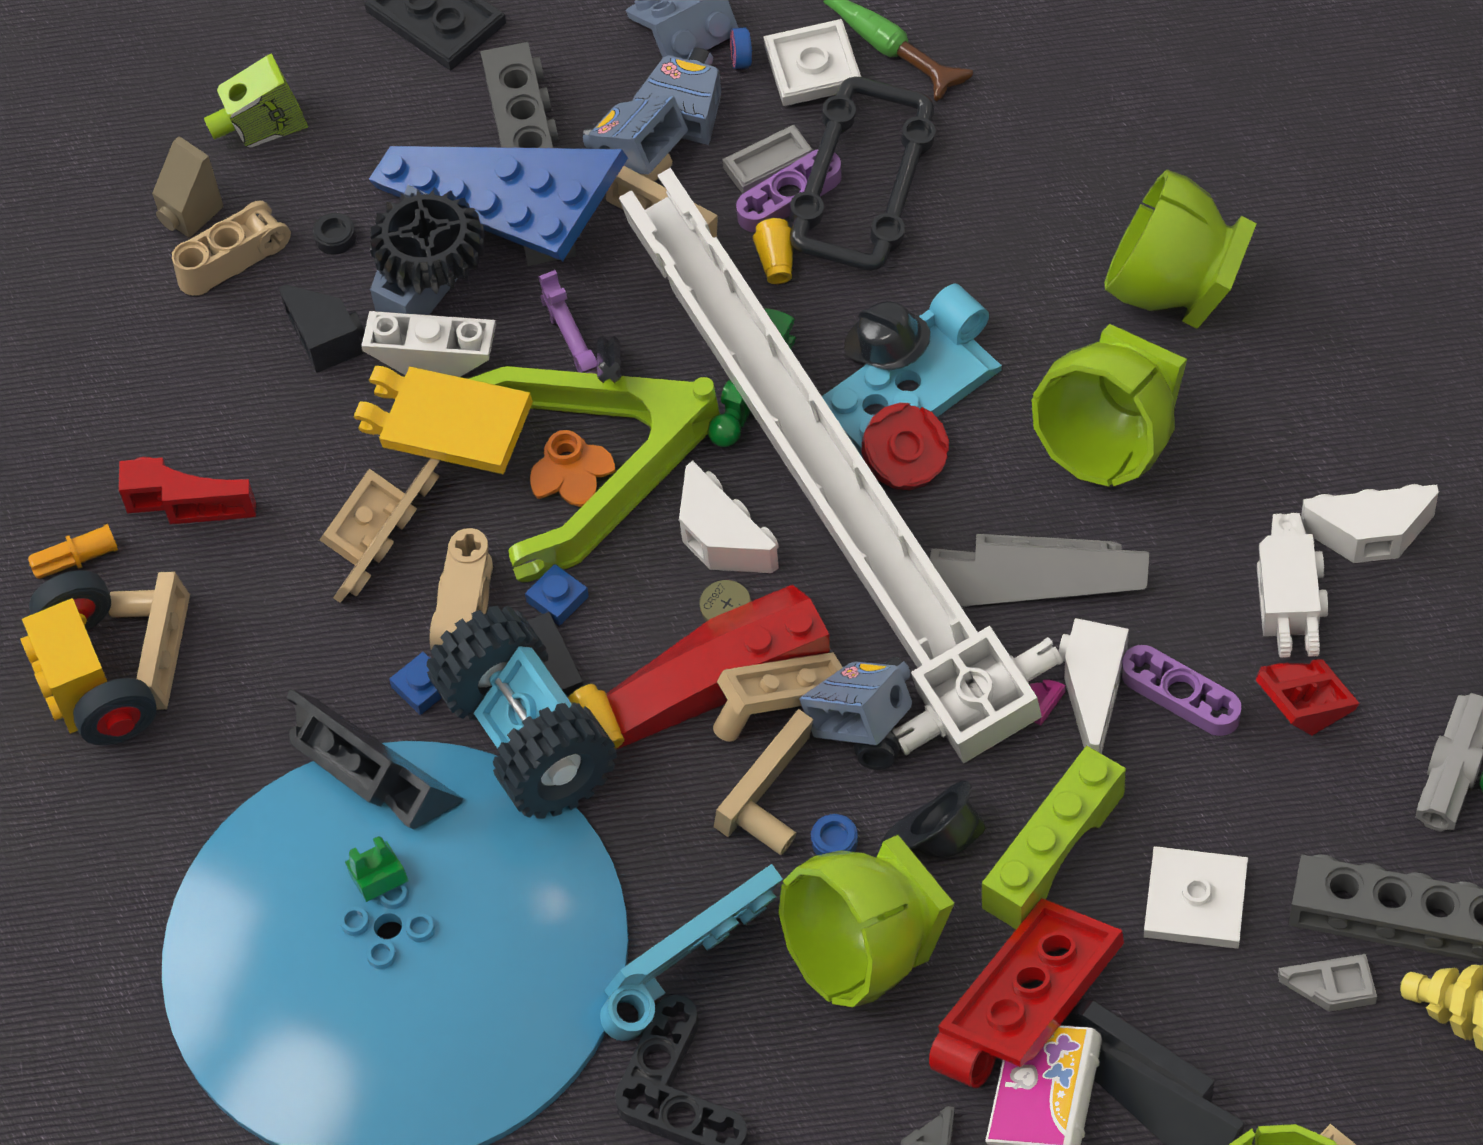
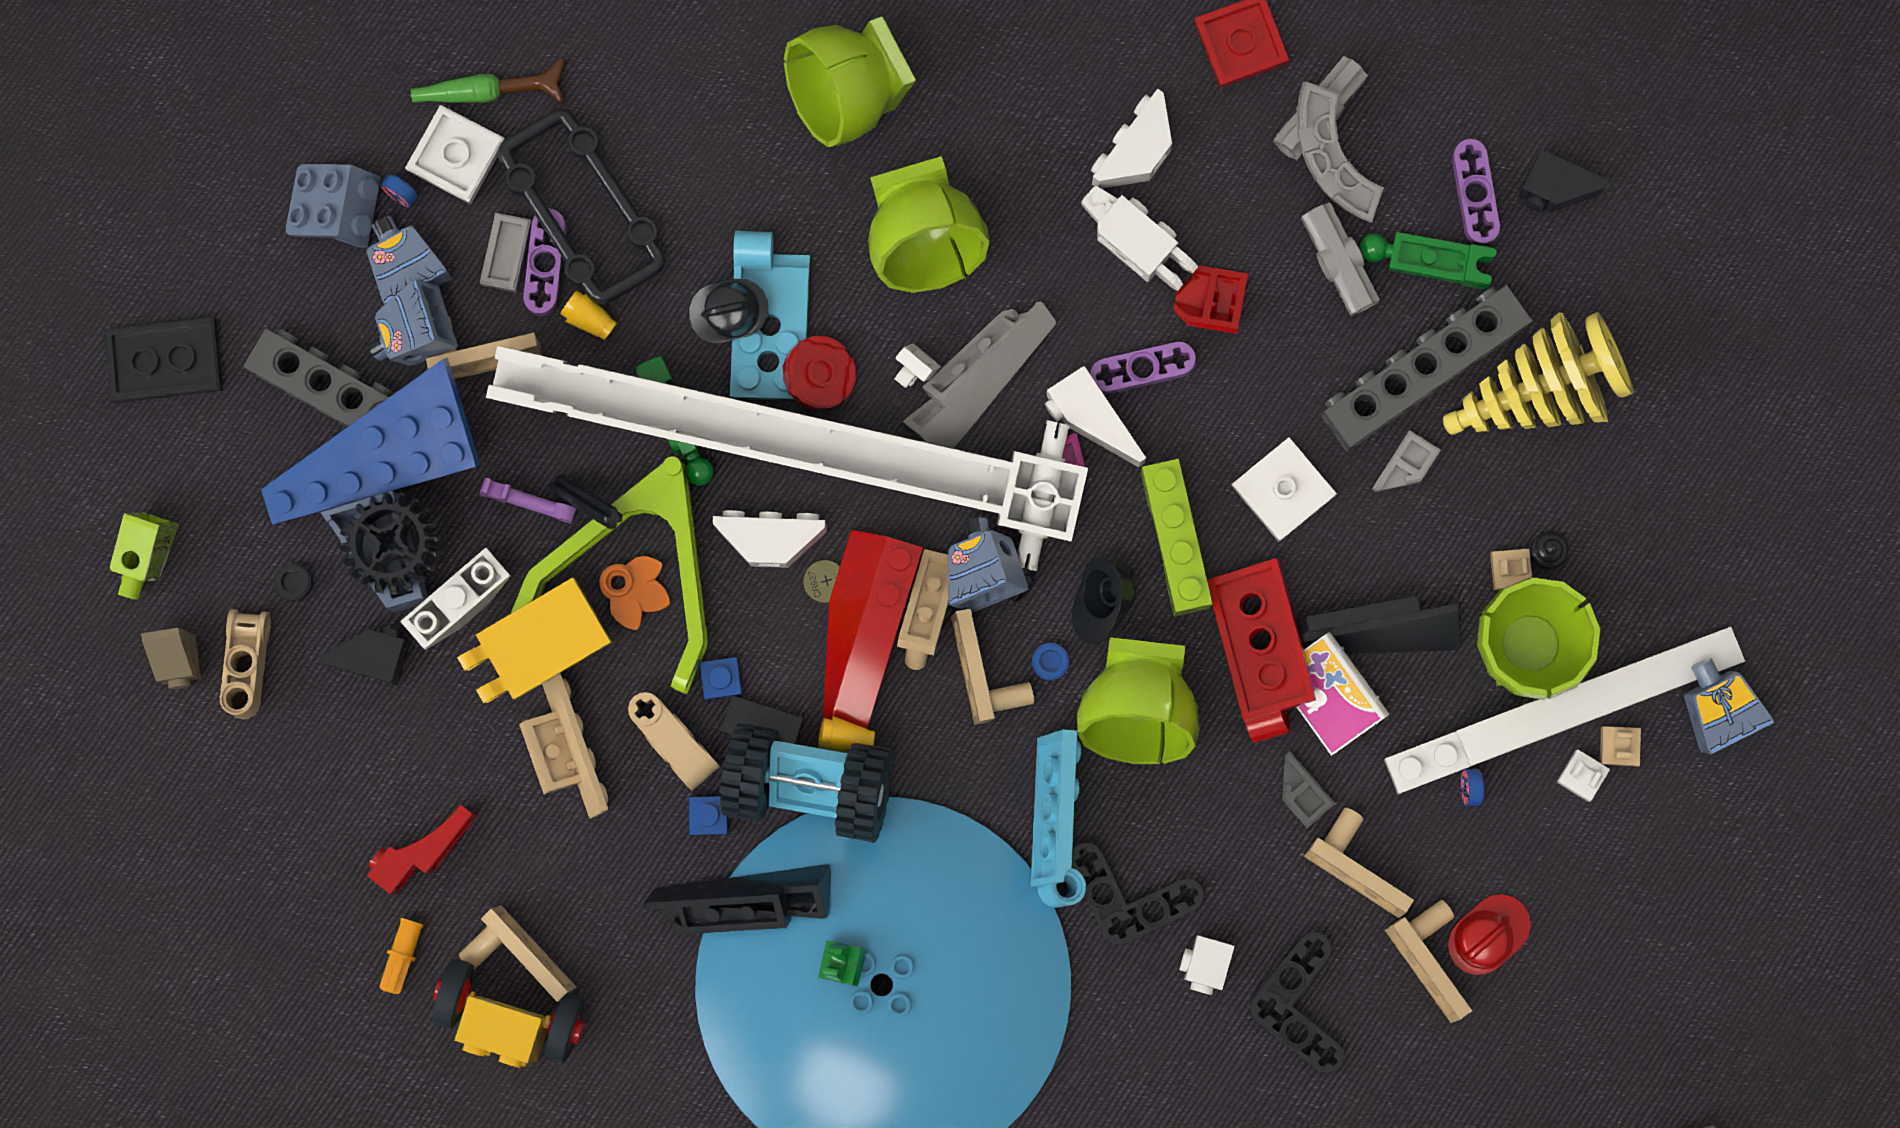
camera: 45 degrees left, 25 degrees up
(989, 512) = (916, 366): none -> white tile

